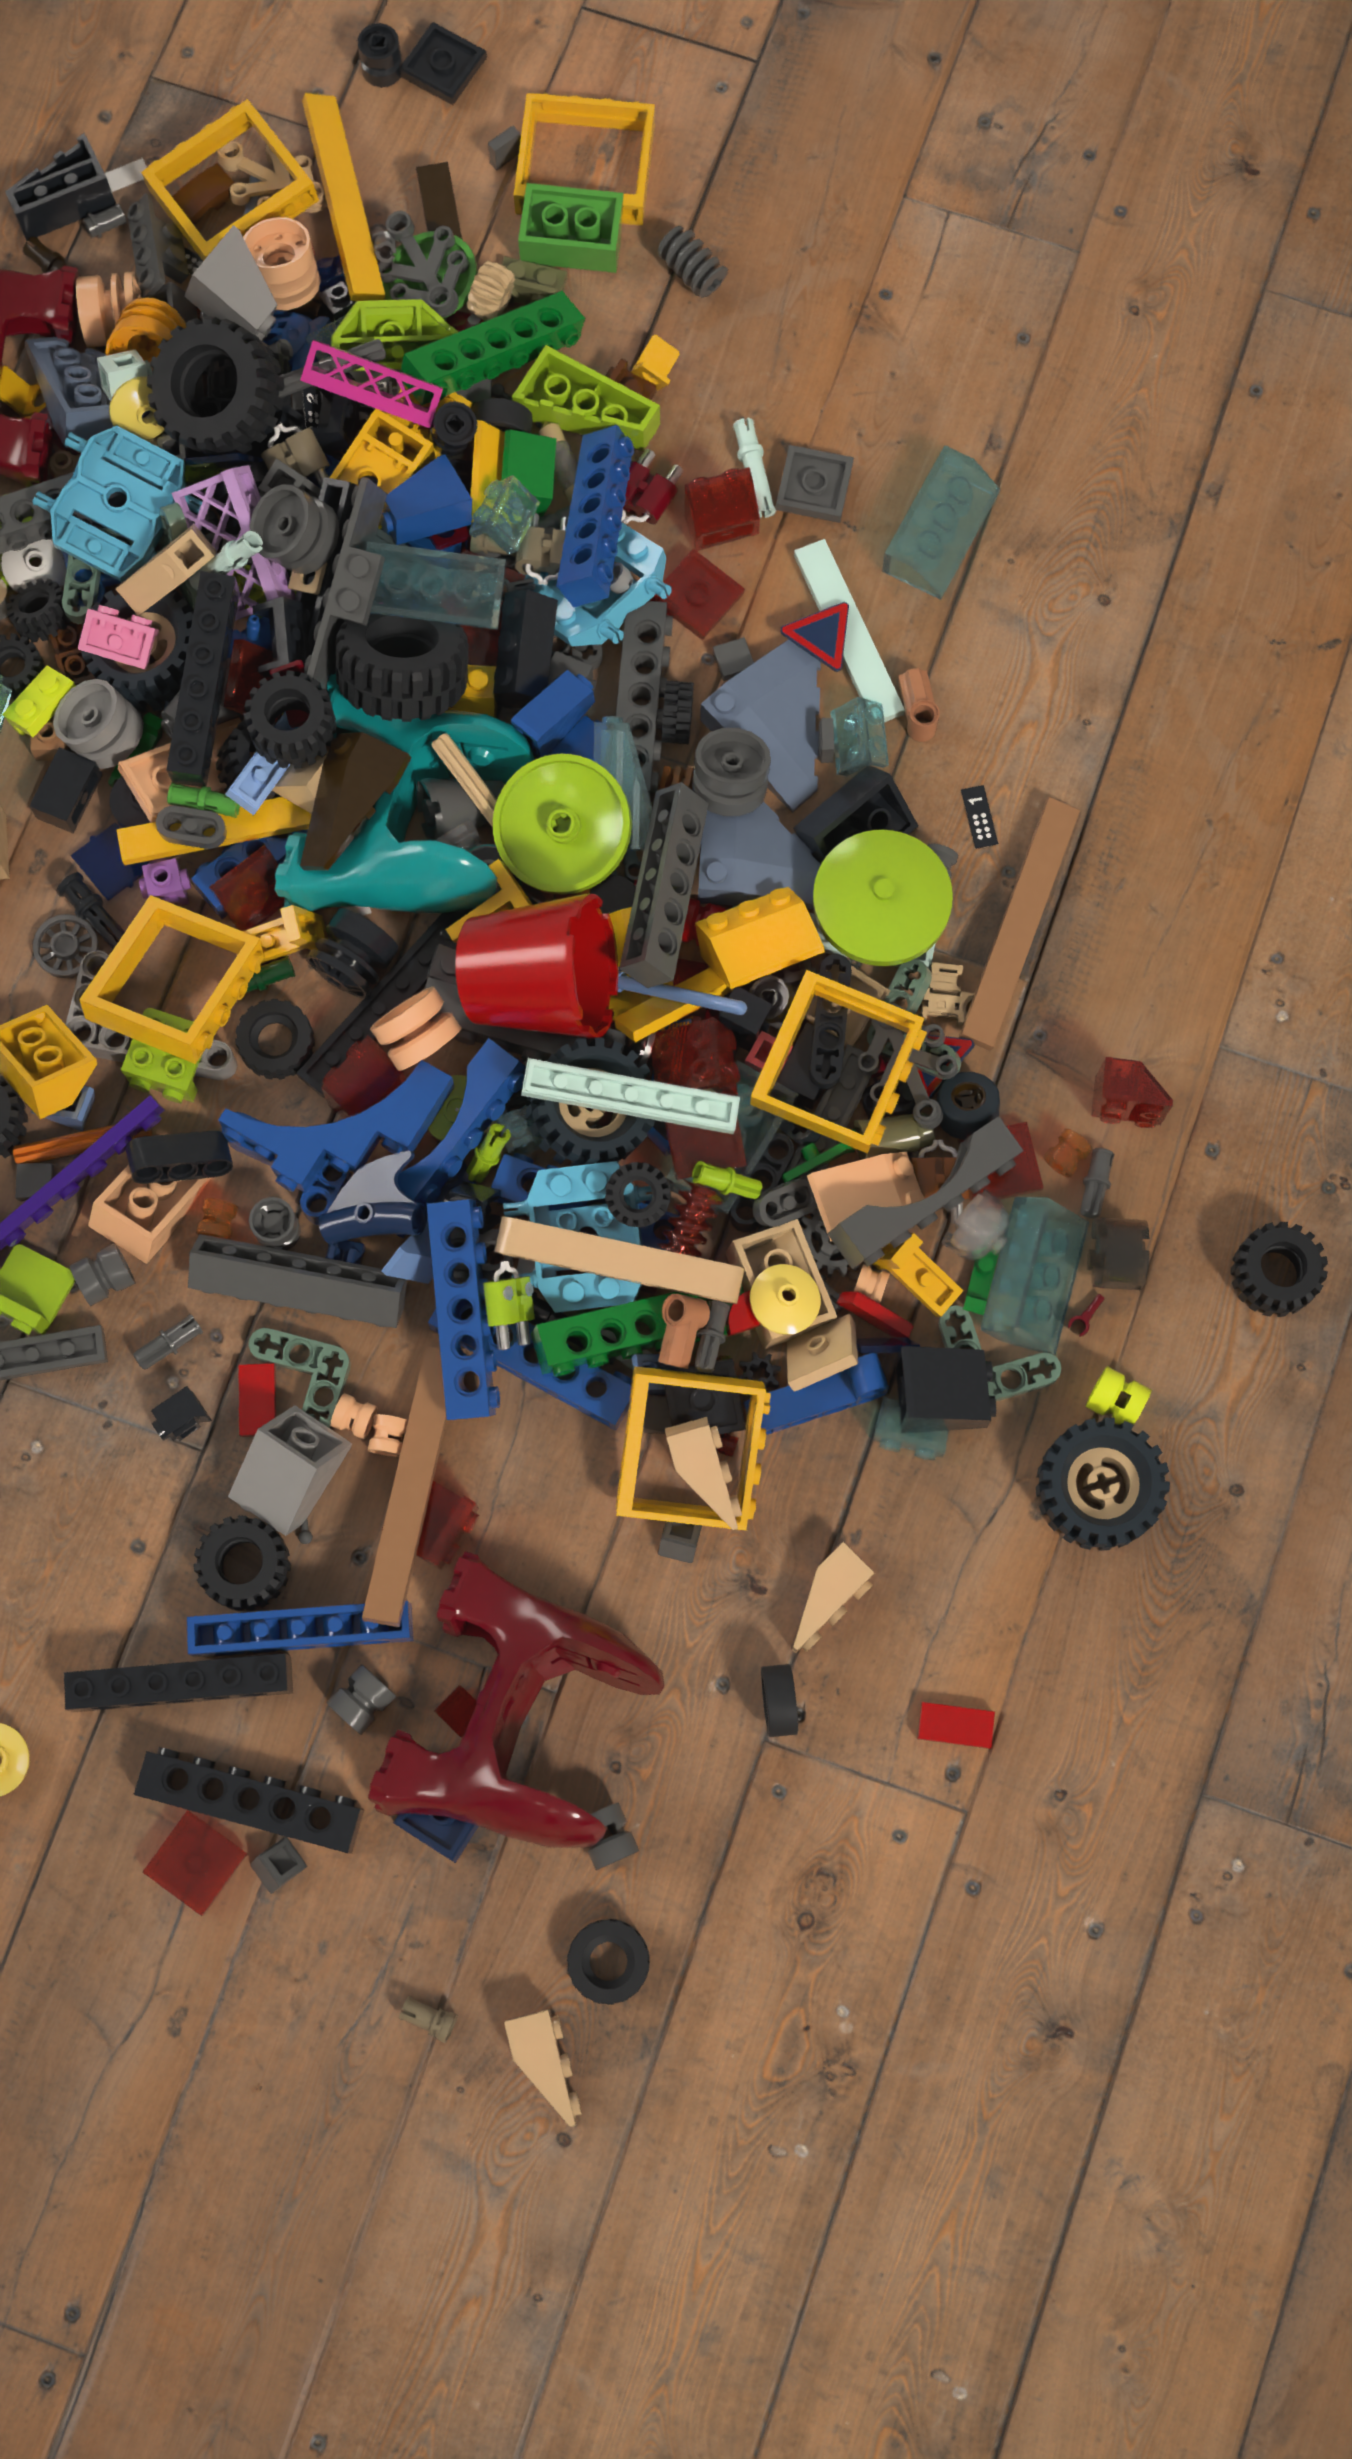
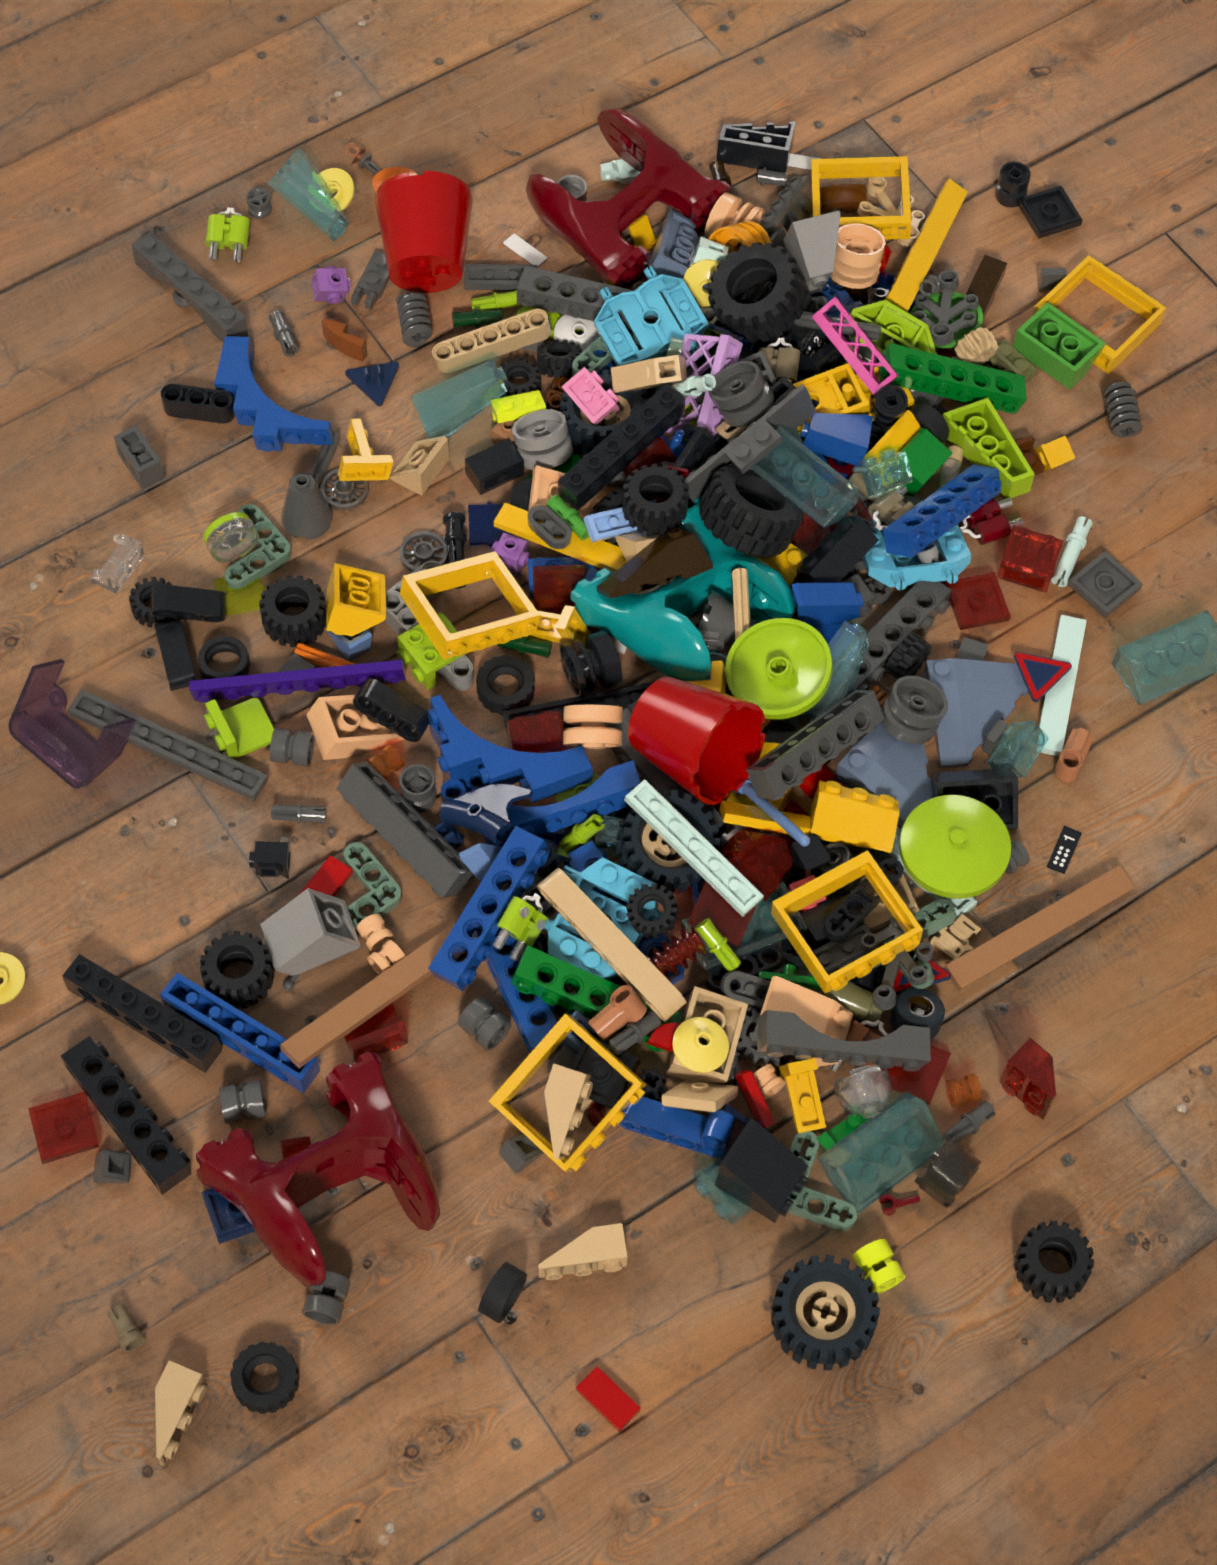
camera: 35 degrees right, 15 degrees down
(543, 1432) = (484, 1023): none -> dark grey wheel

